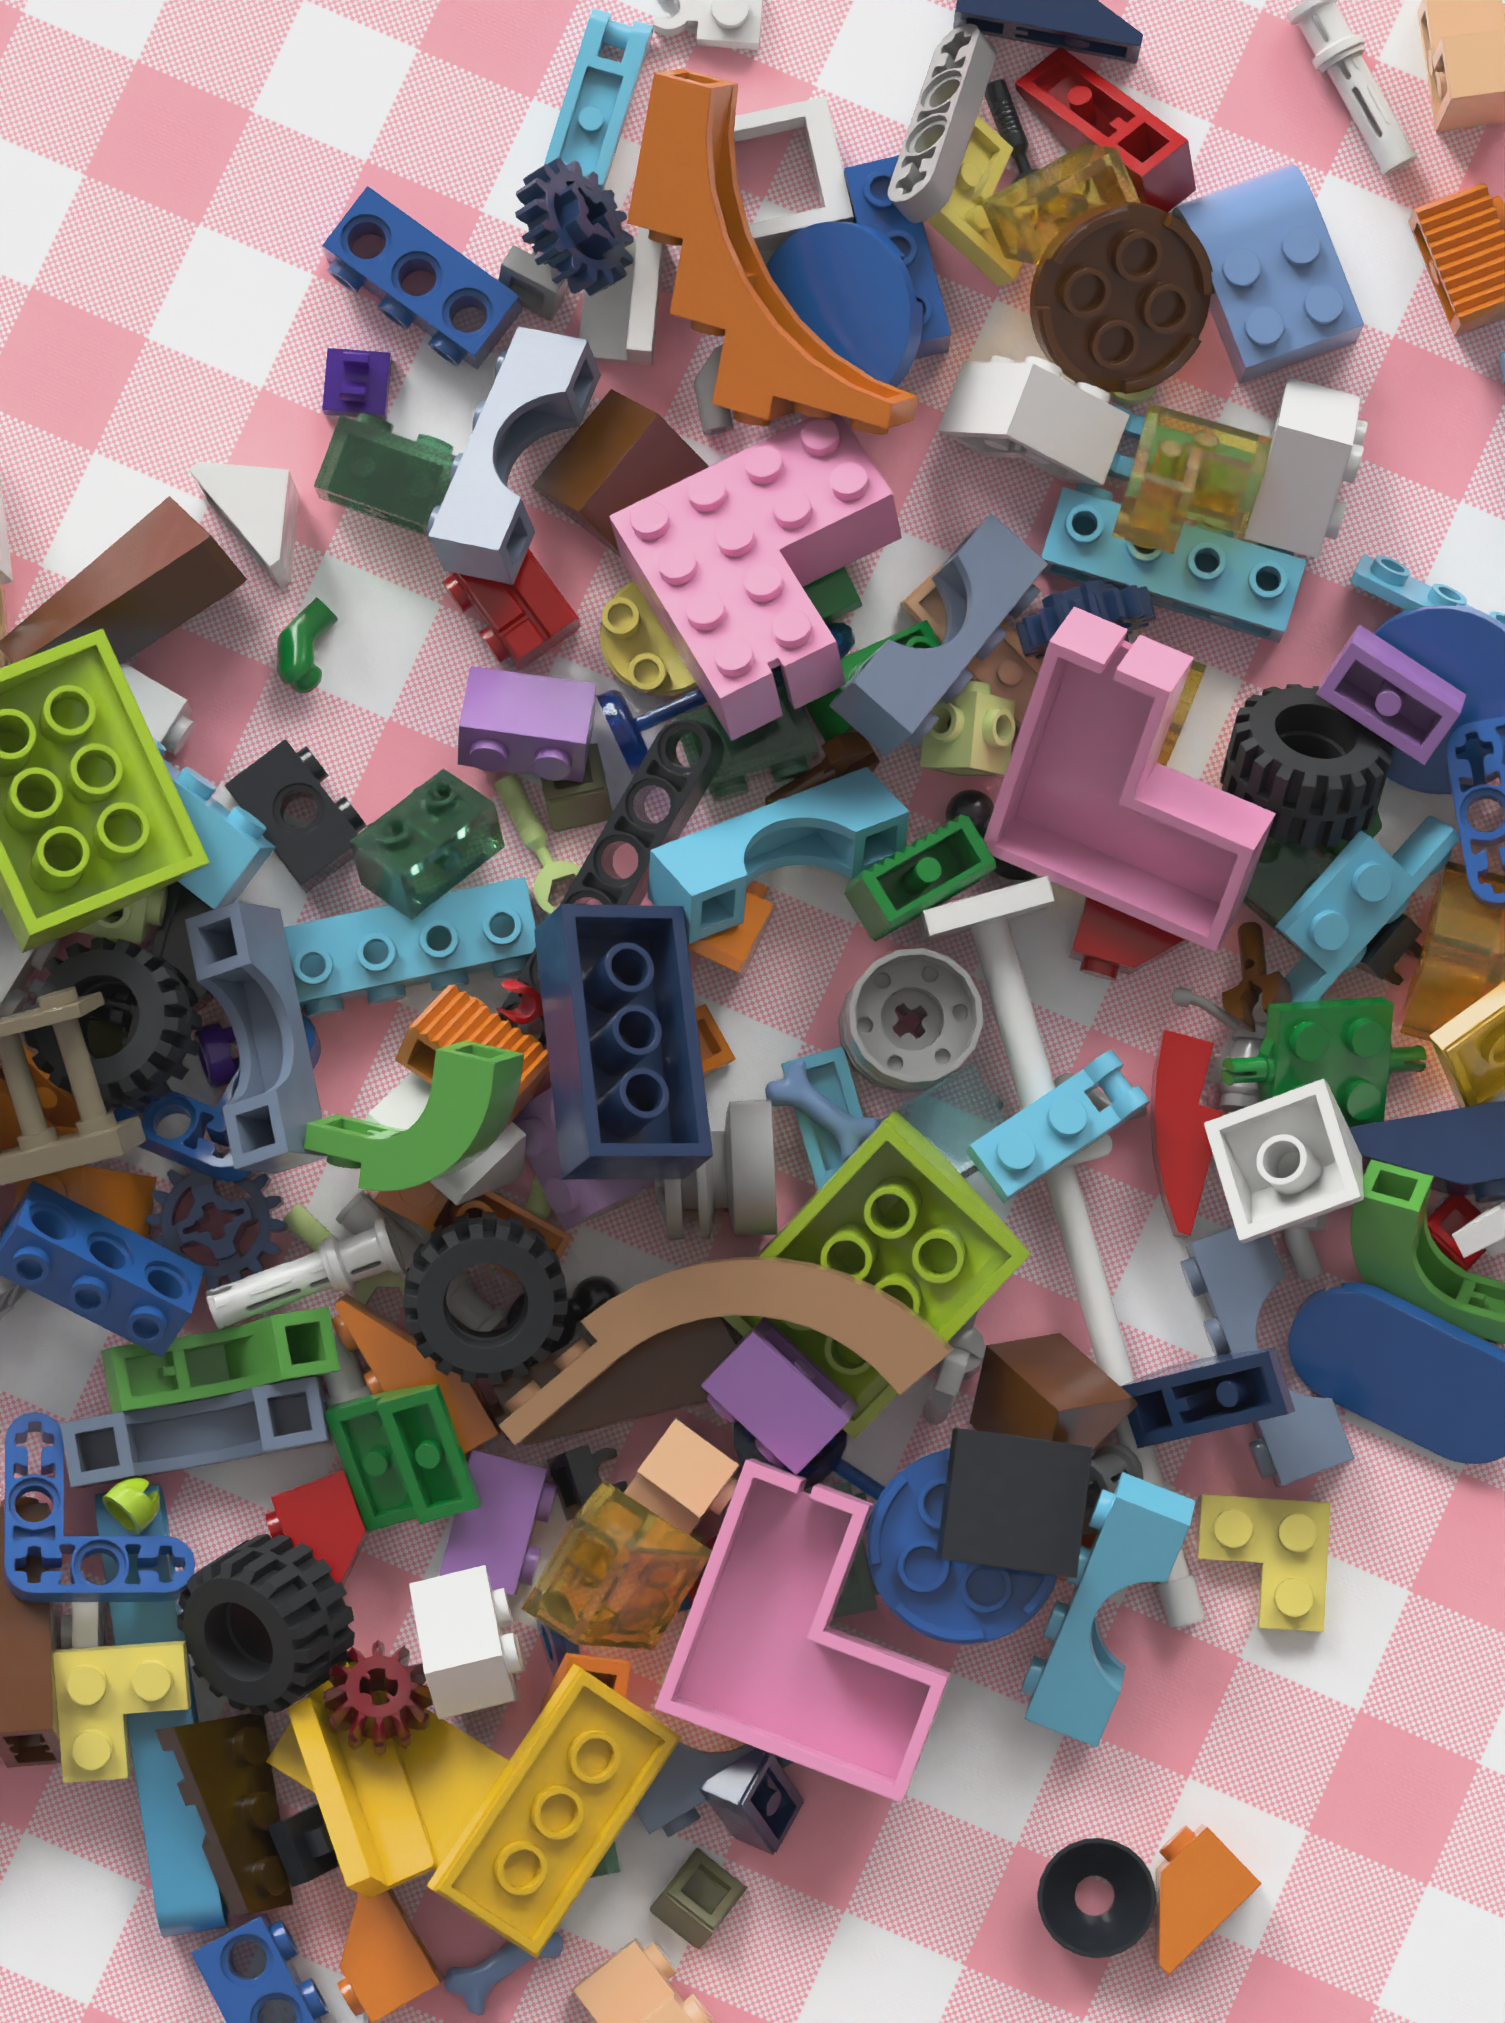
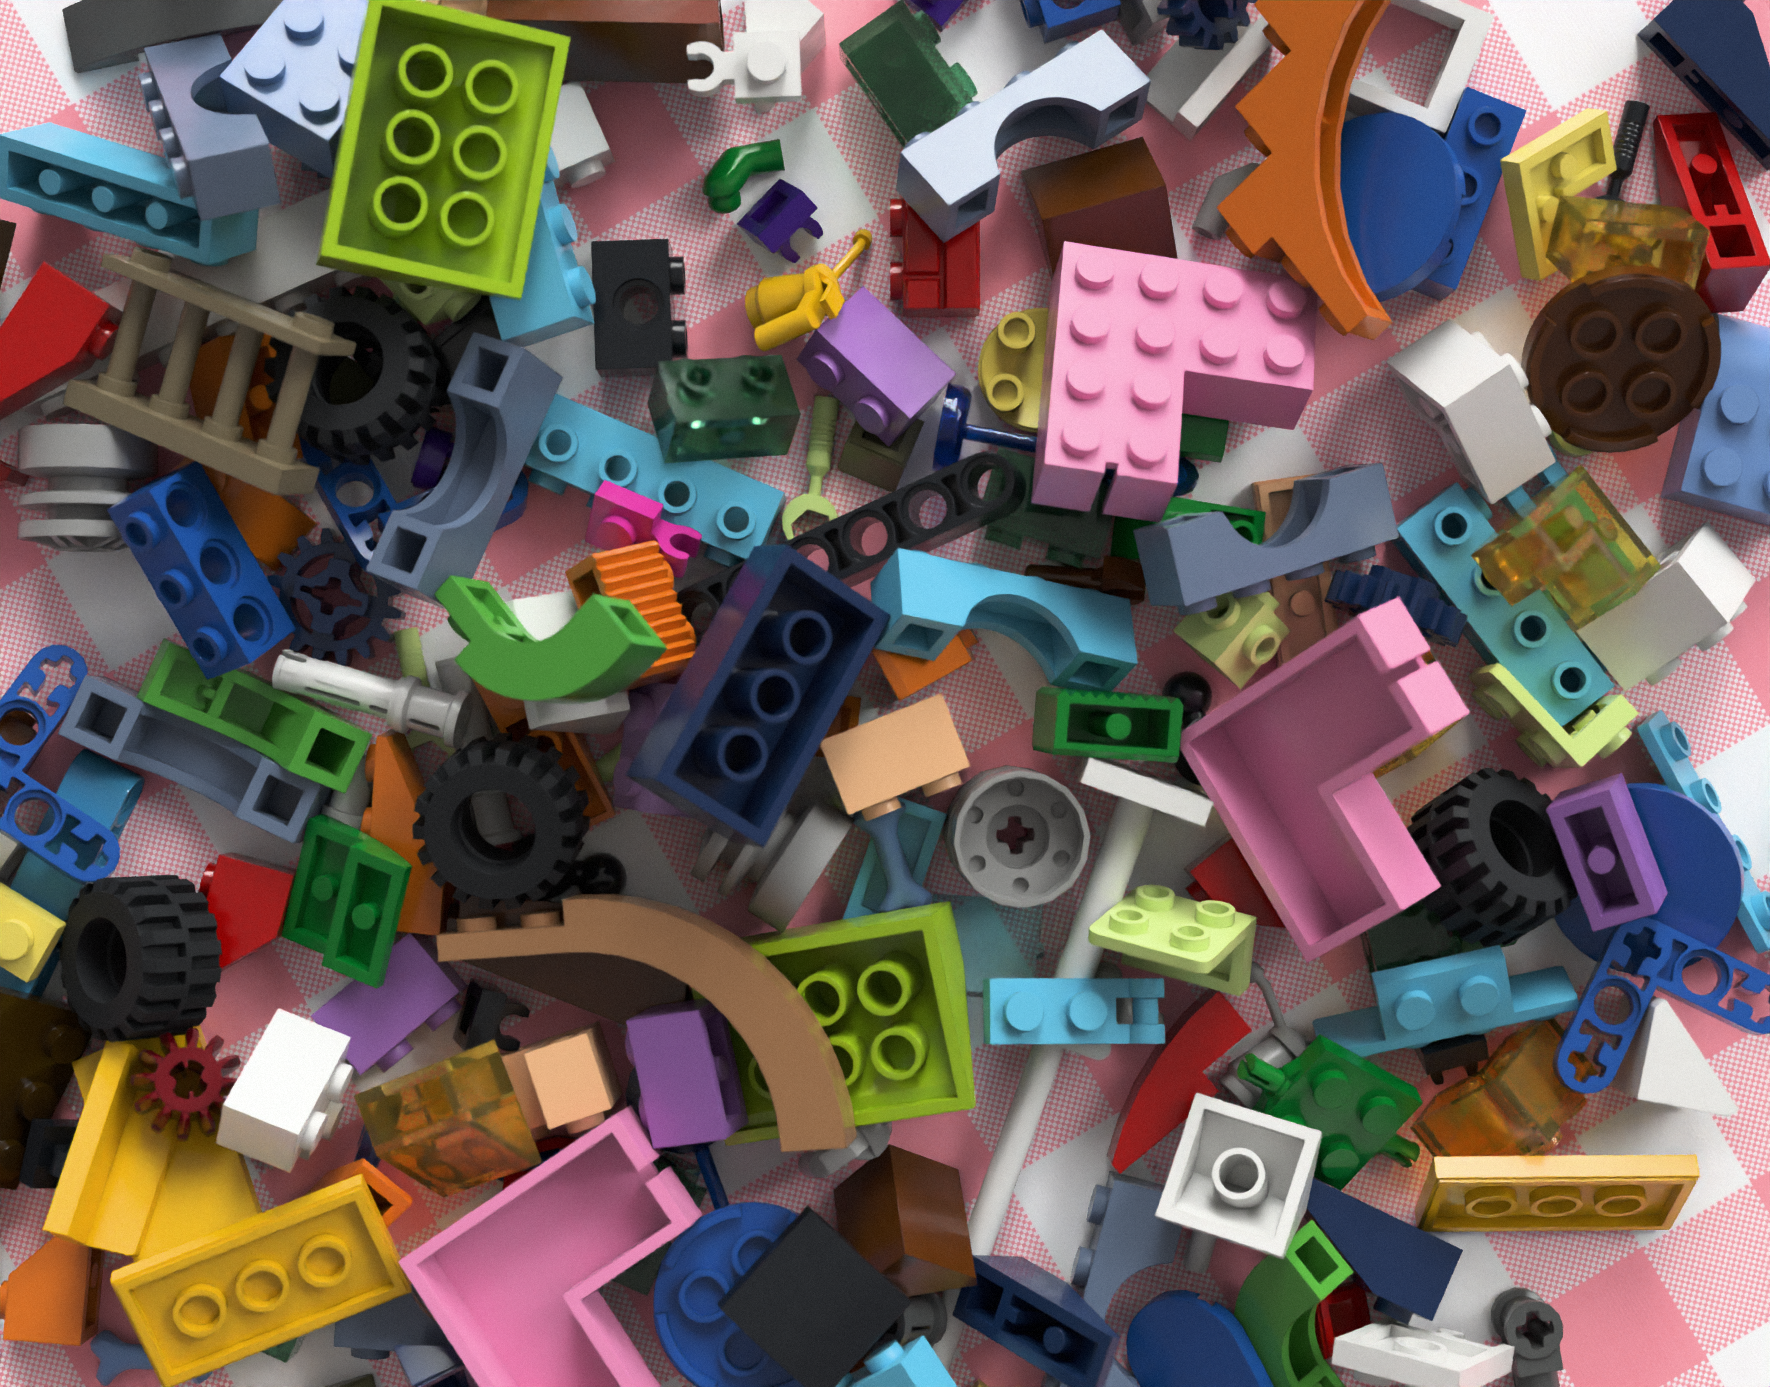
camera: 30 degrees right, 5 degrees up
(130, 1505) = (97, 782): lime hinge -> none
(268, 547) = (761, 66): none -> white plate
(361, 660) = (778, 217): none -> dark purple tile
(414, 983) = (627, 519): none -> dark pink plate
(428, 717) = (797, 303): none -> yellow piece
(530, 1005) = (705, 606): red hand -> none
(767, 1021) = (896, 756): none -> light nougat brick
(942, 123) = (1574, 107): light grey beam -> none
(1105, 1009) = (1180, 938): none -> yellowish green bracket
(1255, 980) = (1322, 1000): reddish brown bar -> none
(1279, 642) = (1594, 731): none -> yellowish green bracket

